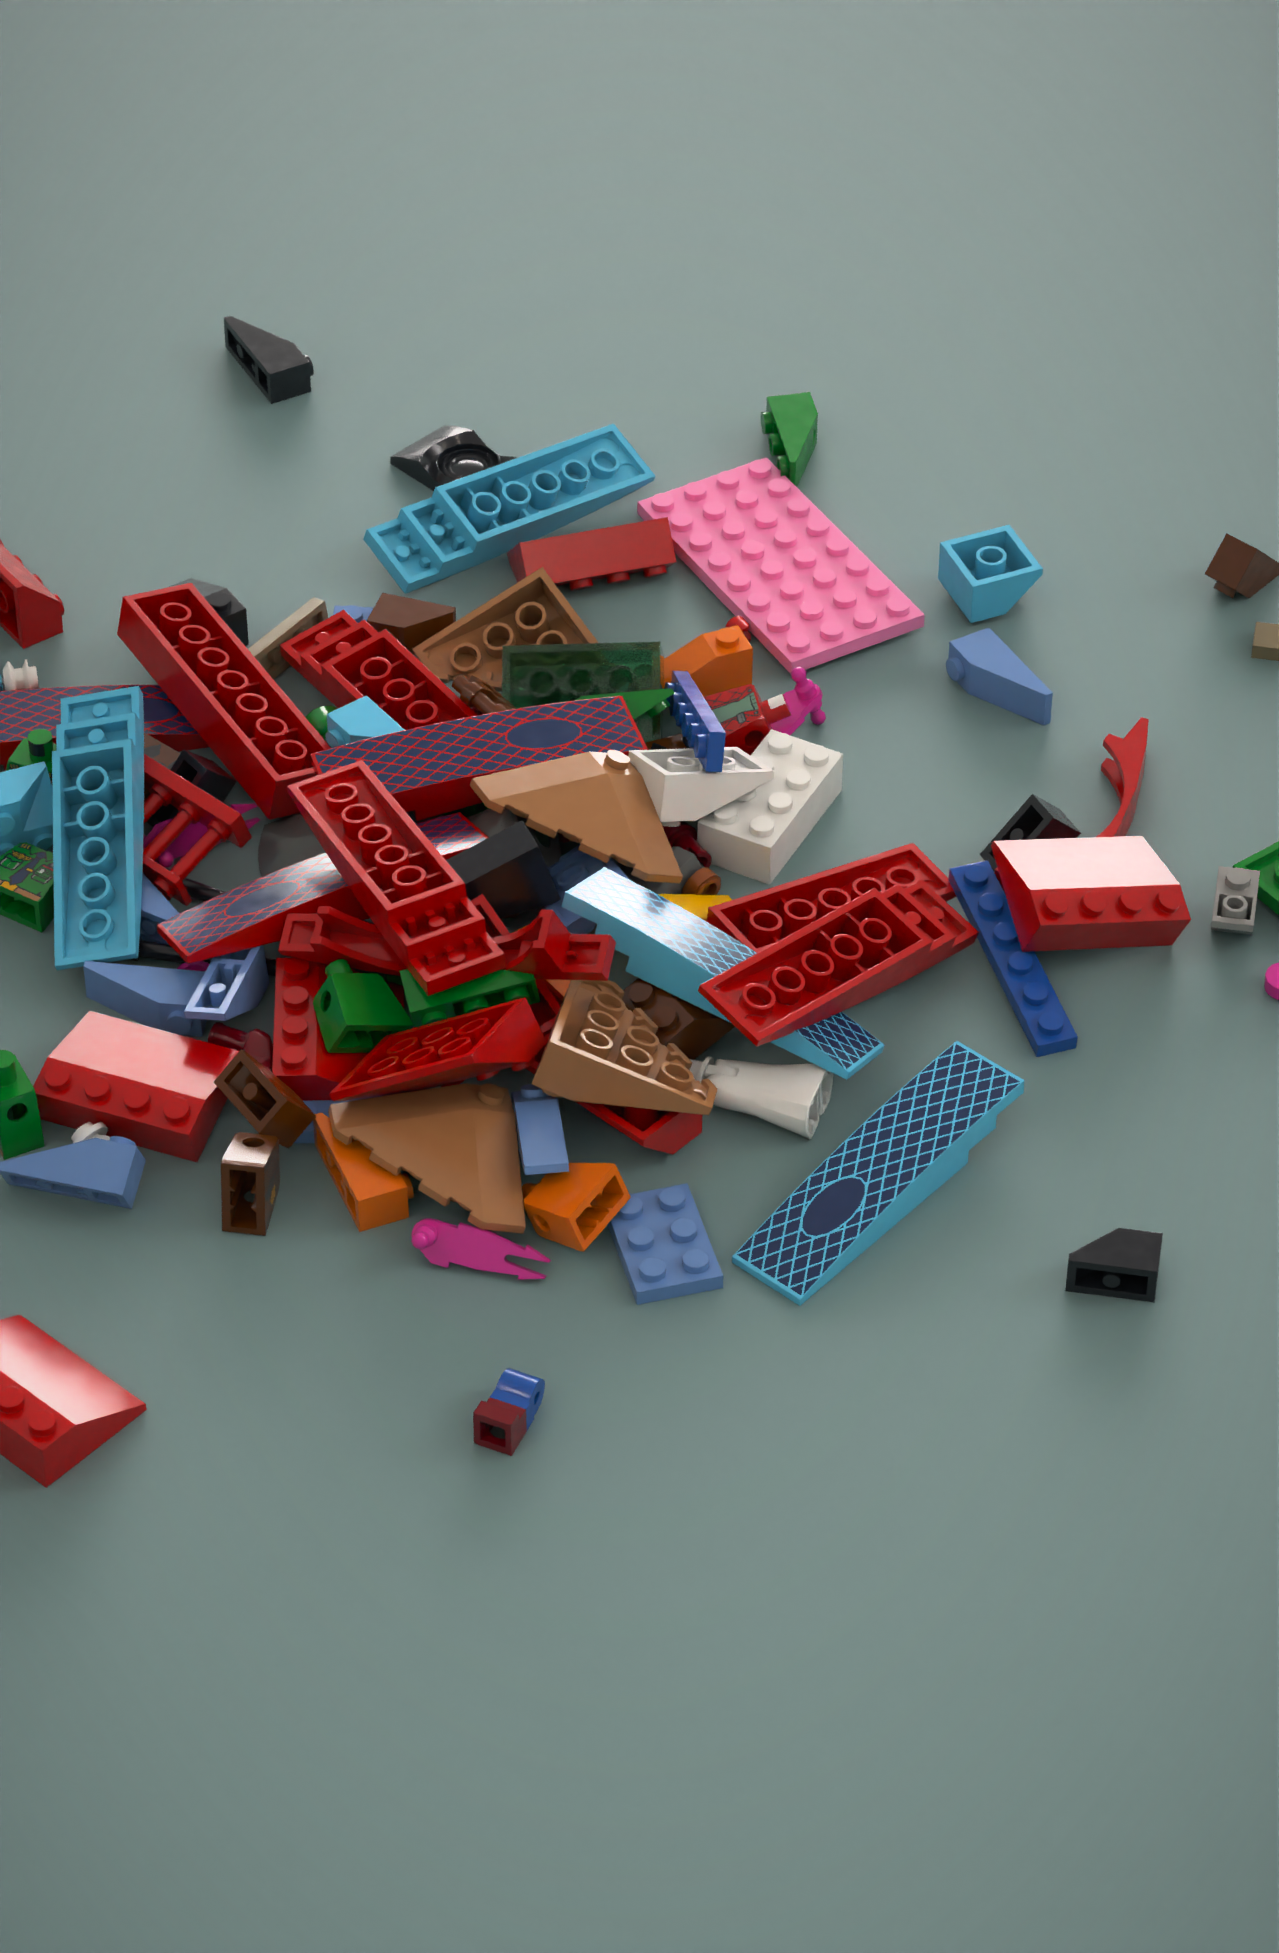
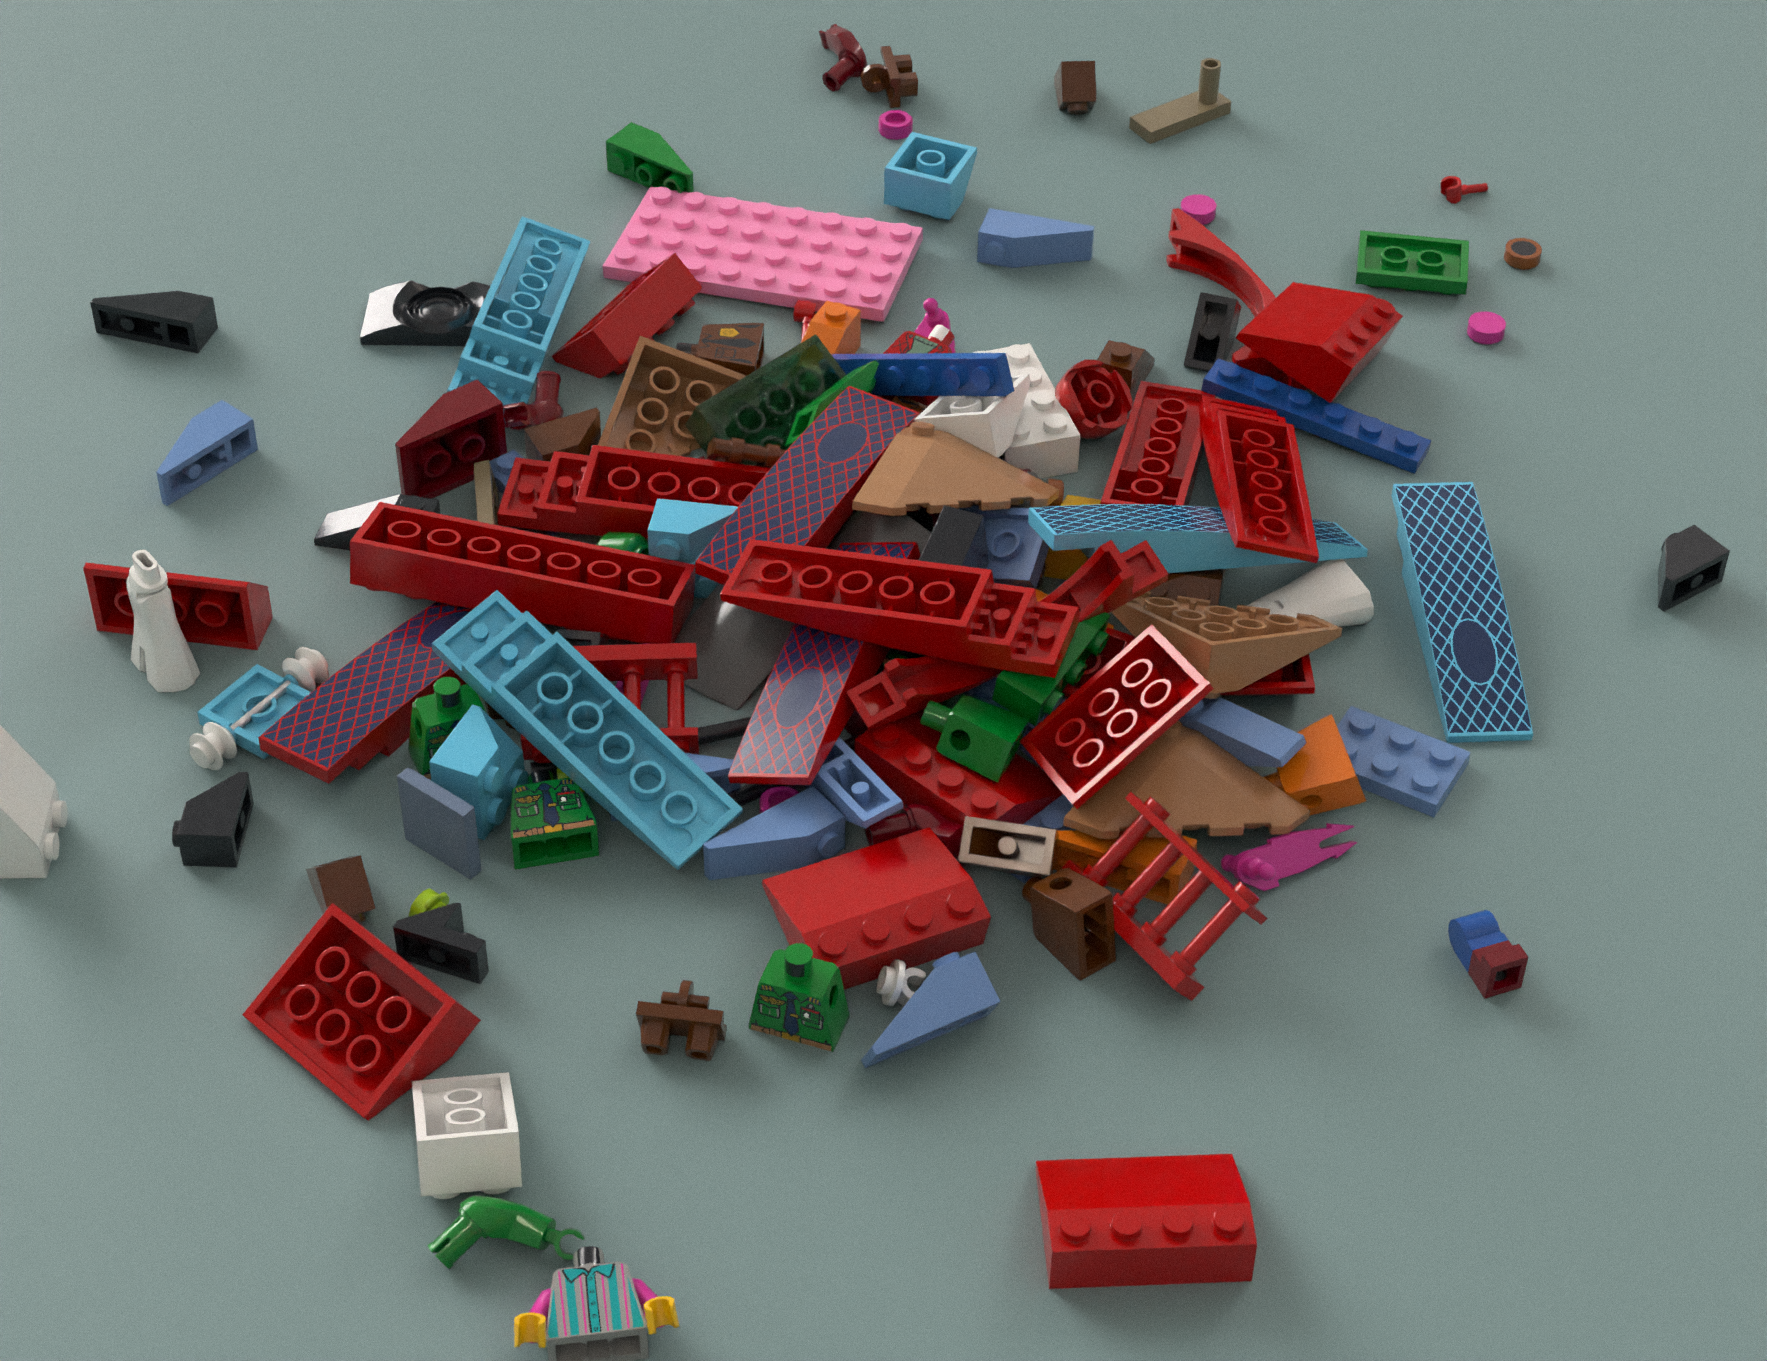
camera: 45 degrees left, 0 degrees up
(164, 478) = (205, 449): none -> medium blue slope
(293, 1193) = (1150, 937): none -> red fence
(318, 564) = (448, 439): none -> dark red slope
(425, 589) = (542, 410): none -> dark red arm
(626, 620) = (730, 346): none -> reddish brown torso
(830, 828) = (1094, 399): none -> red cylinder
(911, 819) = (1129, 361): none -> reddish brown slope
(1049, 517) = (895, 124): none -> dark pink tile
(1090, 433) = (850, 56): none -> dark red arm
(1099, 471) = (893, 77): none -> reddish brown hips
(1194, 735) = (1199, 207): none -> dark pink tile
(1235, 900) = (1403, 289): light grey slope -> none

